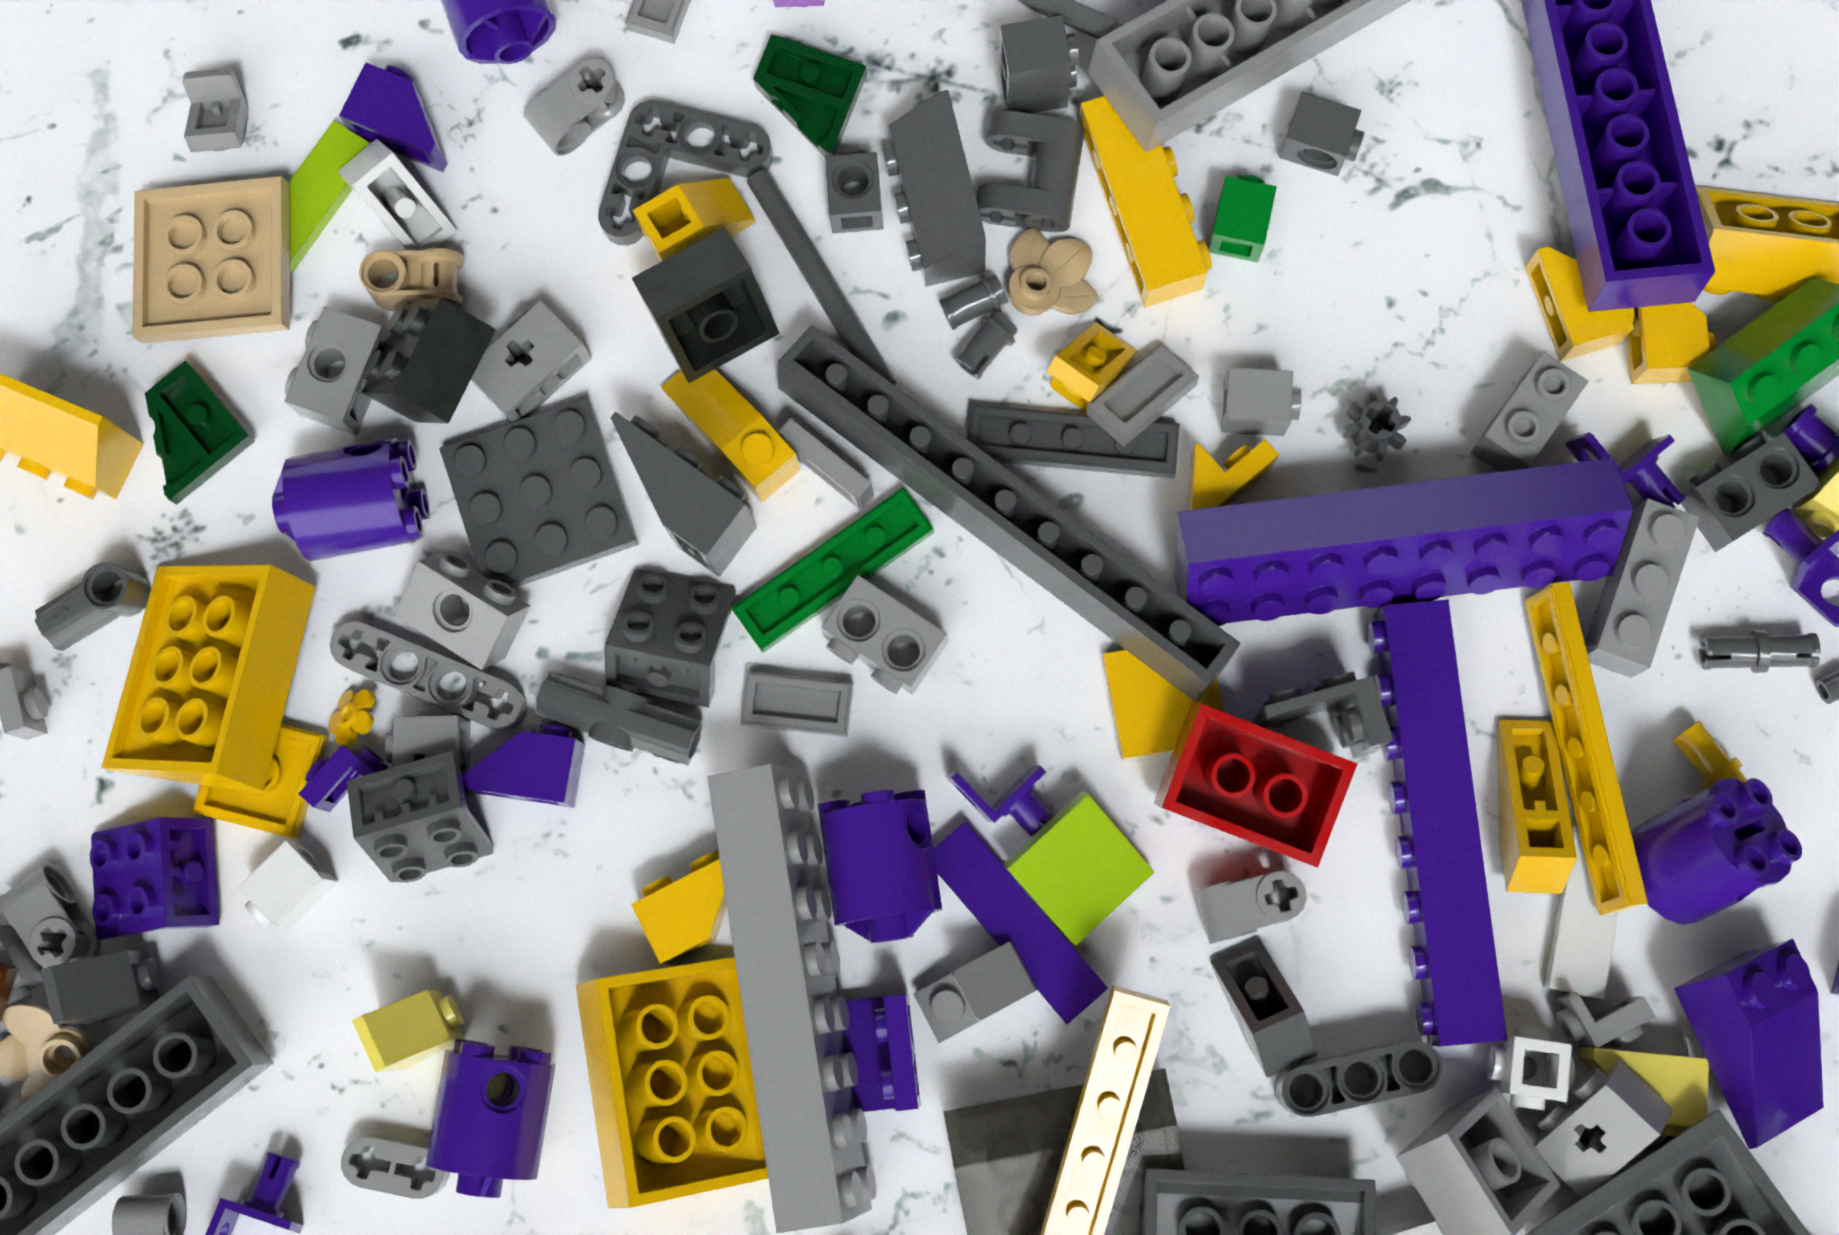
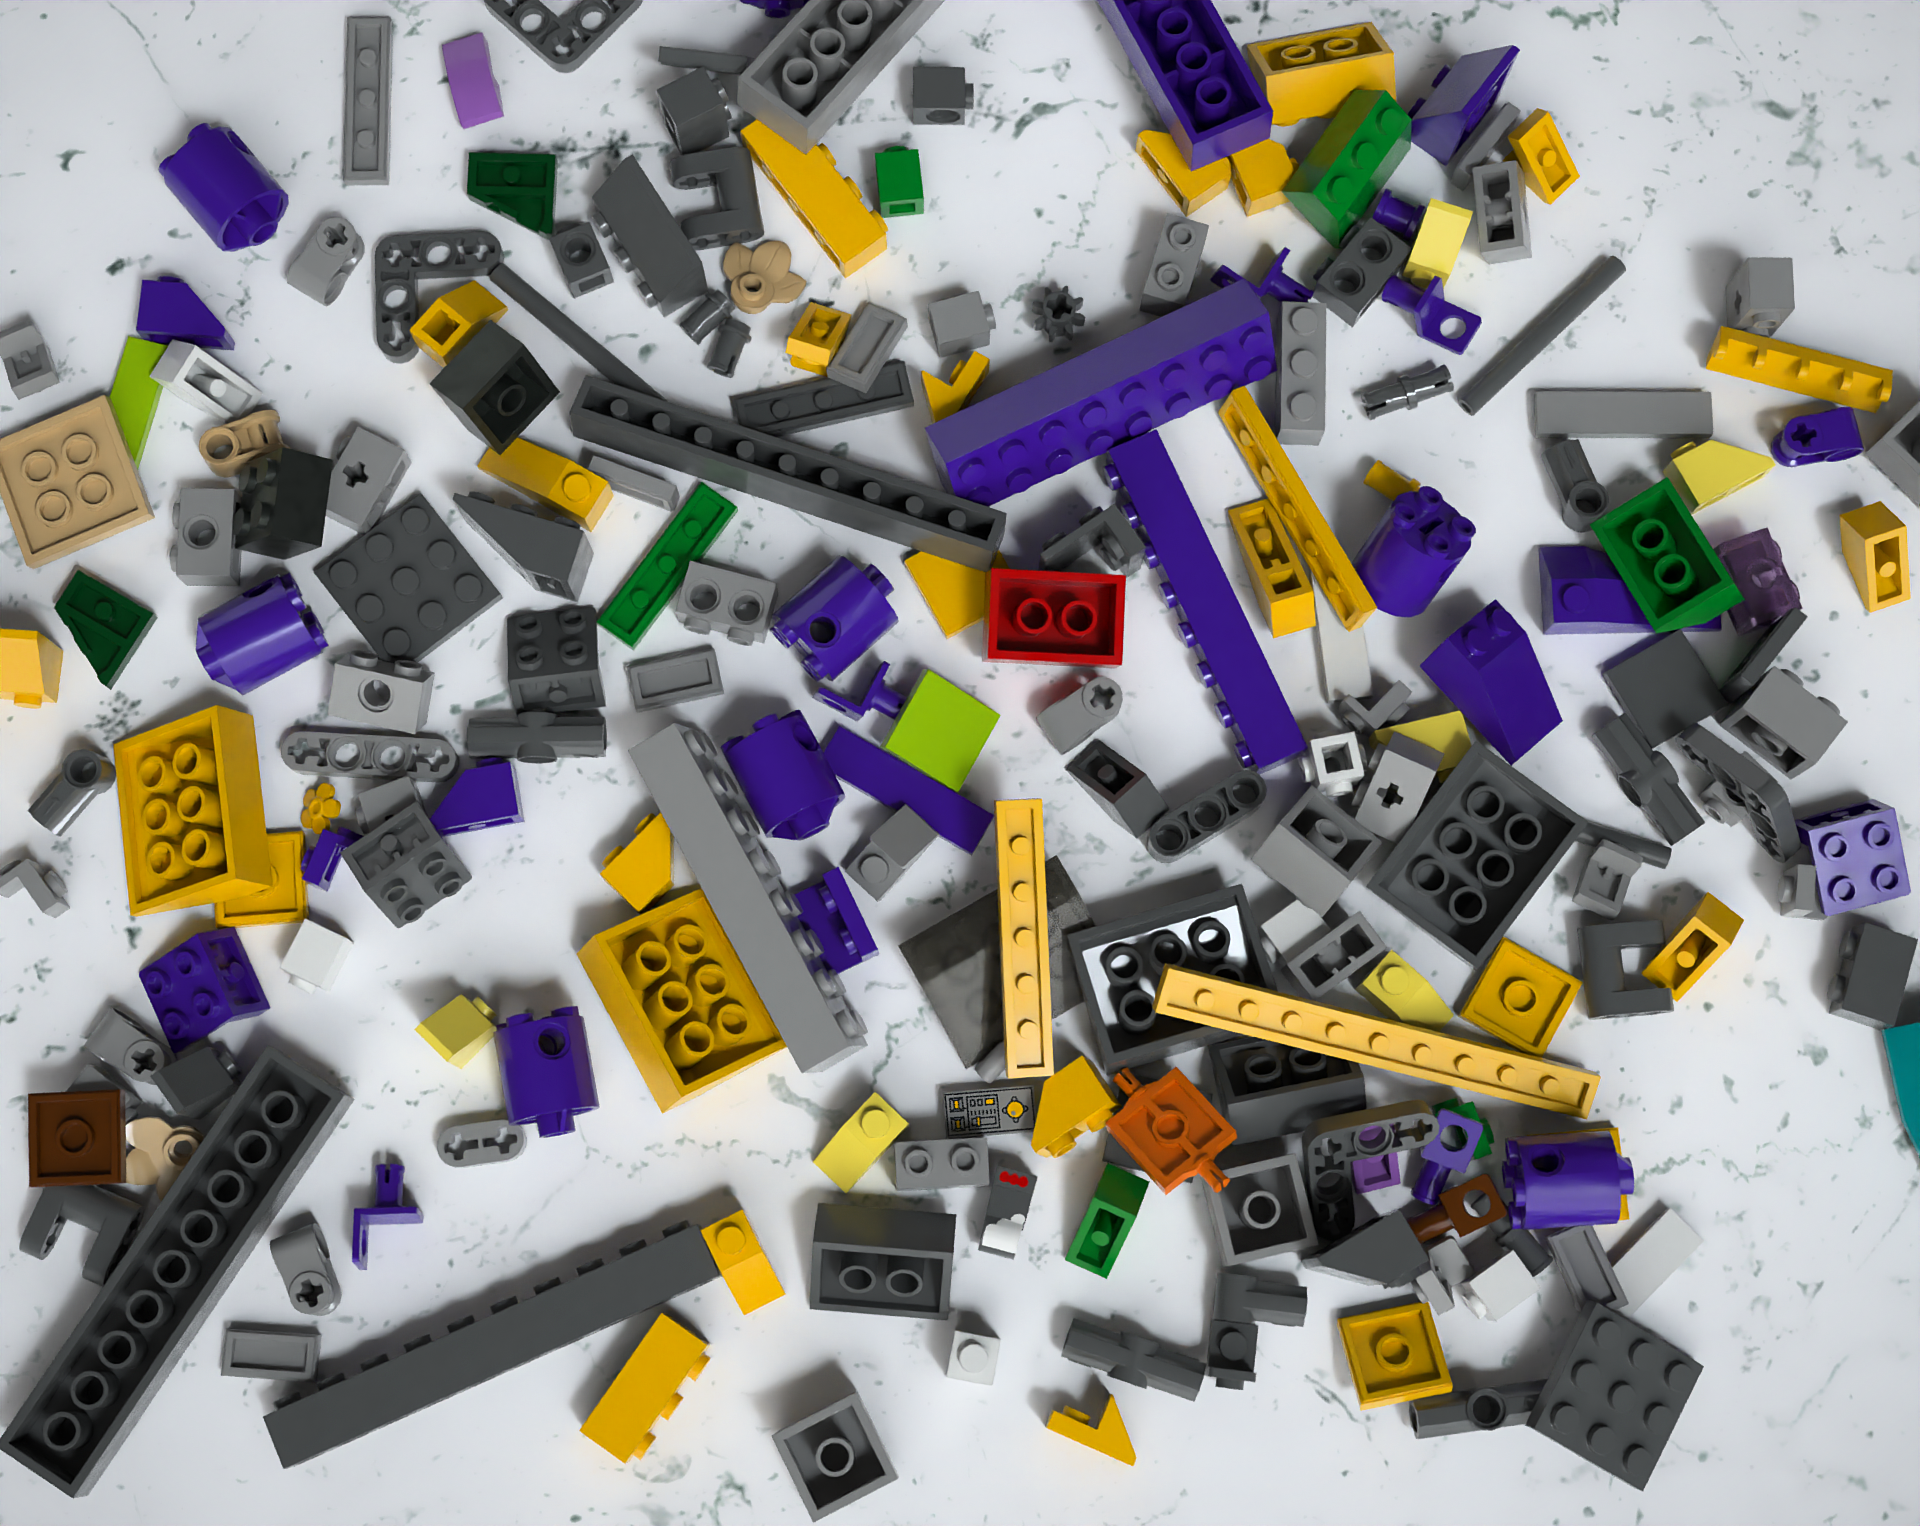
camera: 30 degrees left, 0 degrees up
(1021, 690) = (849, 607): none -> dark purple cylinder

